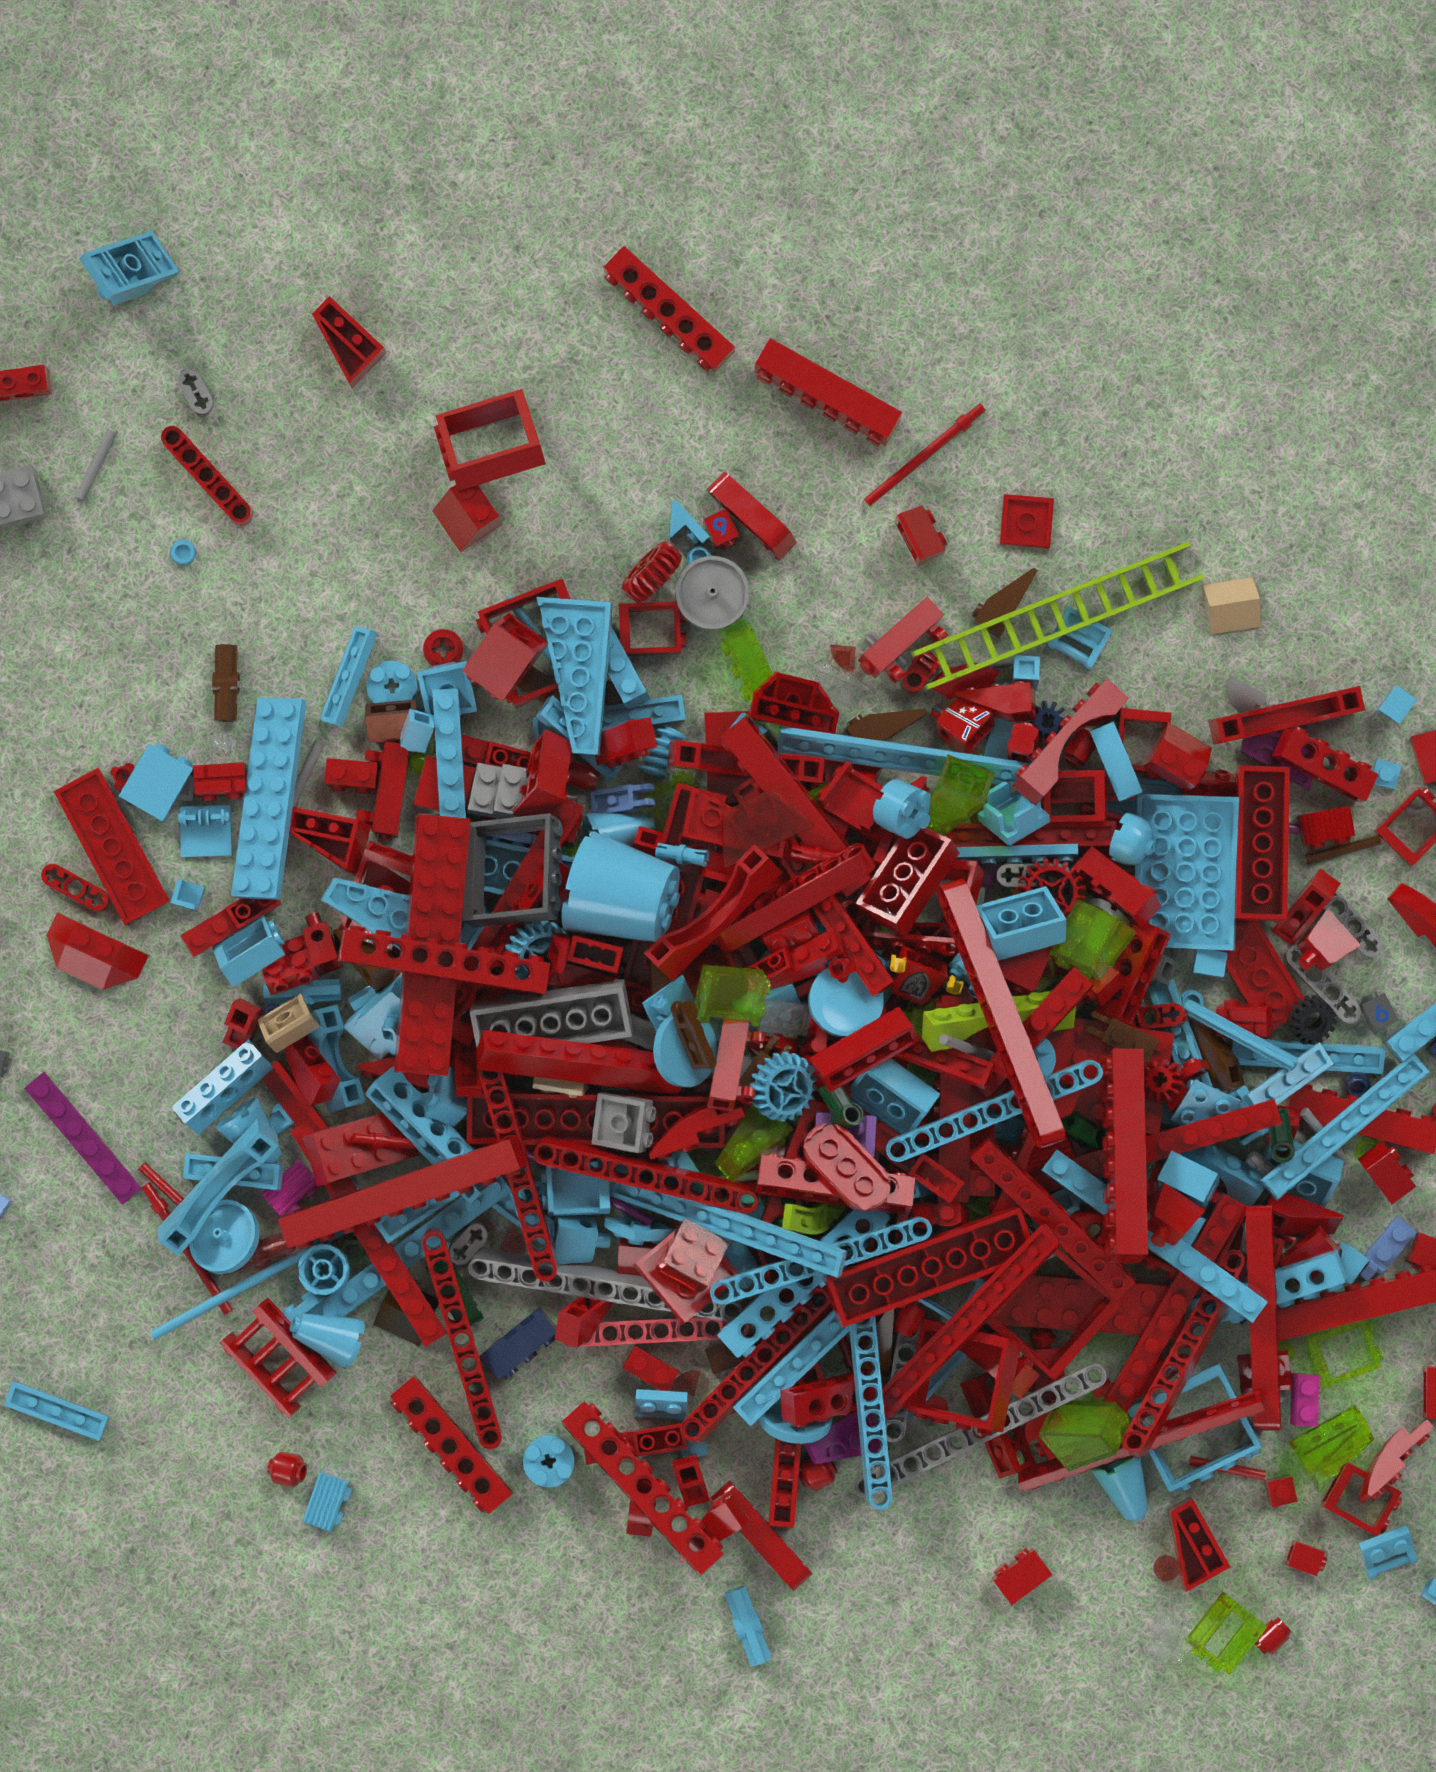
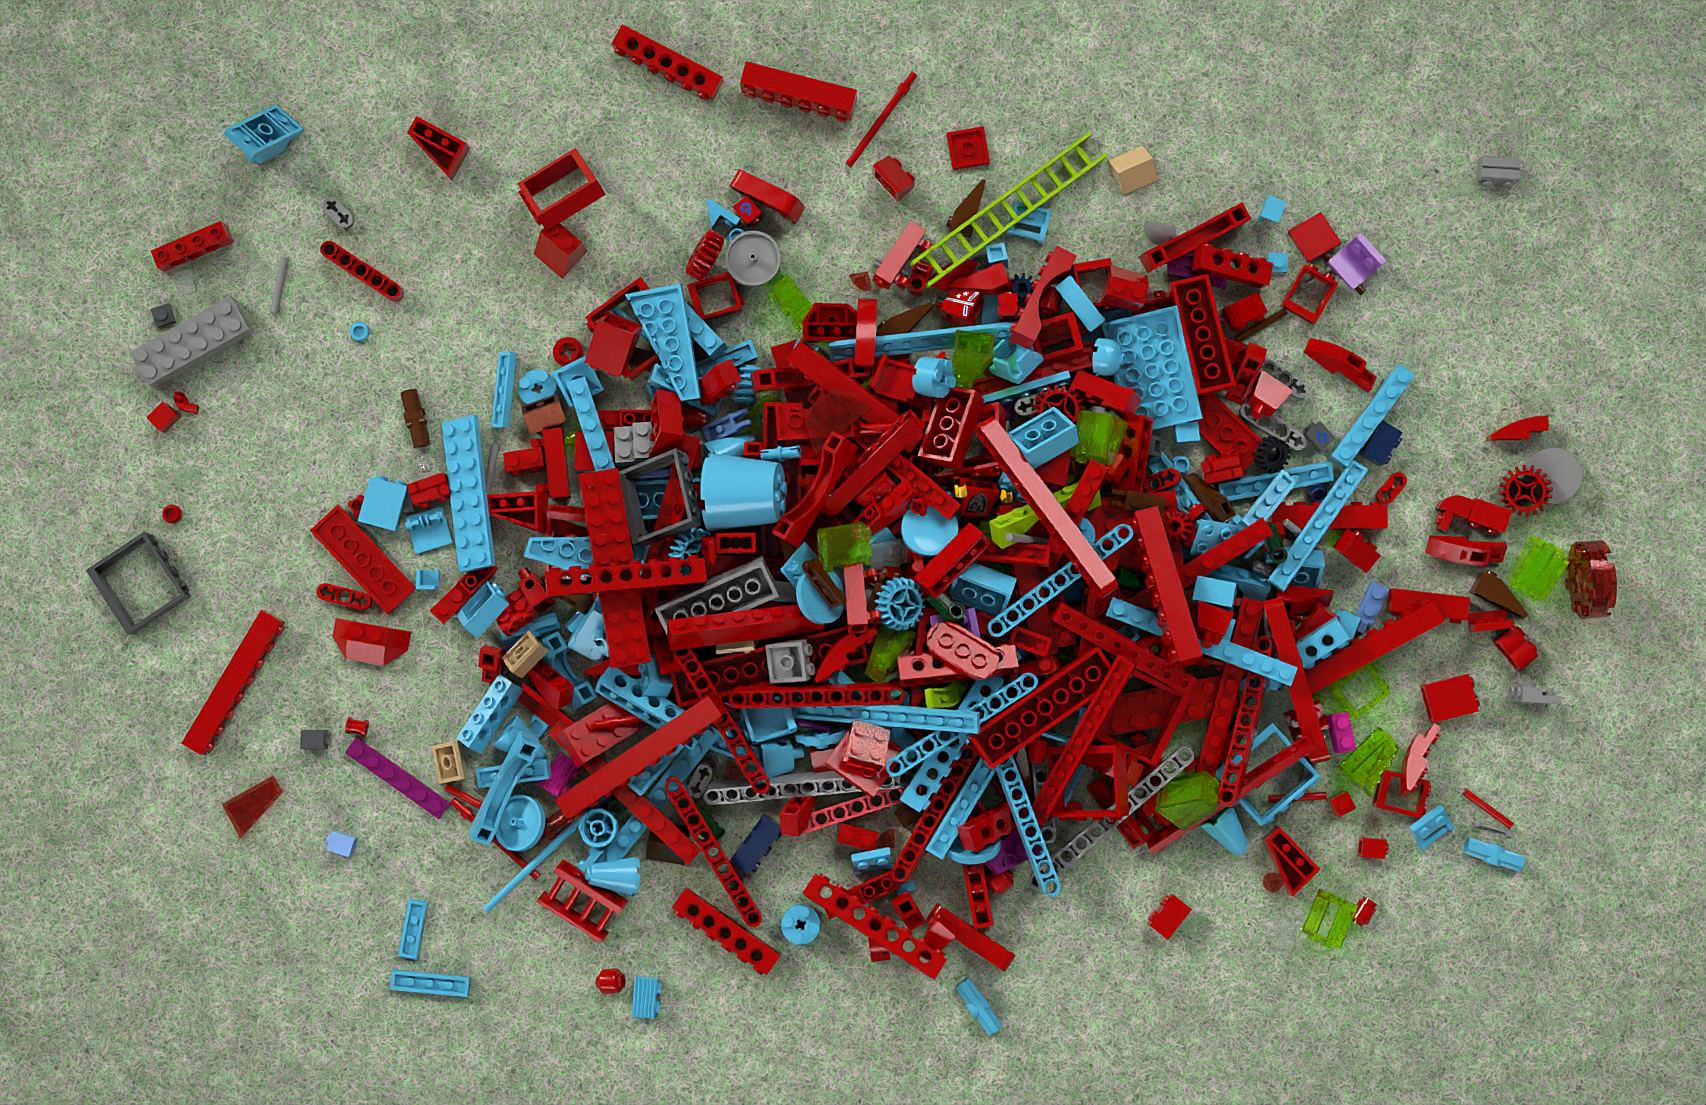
camera: 10 degrees left, 0 degrees up
(48, 1059) = (356, 727): none -> red bush
(52, 1336) = (413, 929): none -> medium azure tile
(155, 1135) = (450, 761): none -> tan slope
(417, 731) = (563, 415): medium azure brick -> none
(831, 726) = (865, 333): none -> red slope
(1241, 1035) = (1224, 478): medium azure axle -> none
(1299, 872) = (1235, 350): none -> red panel

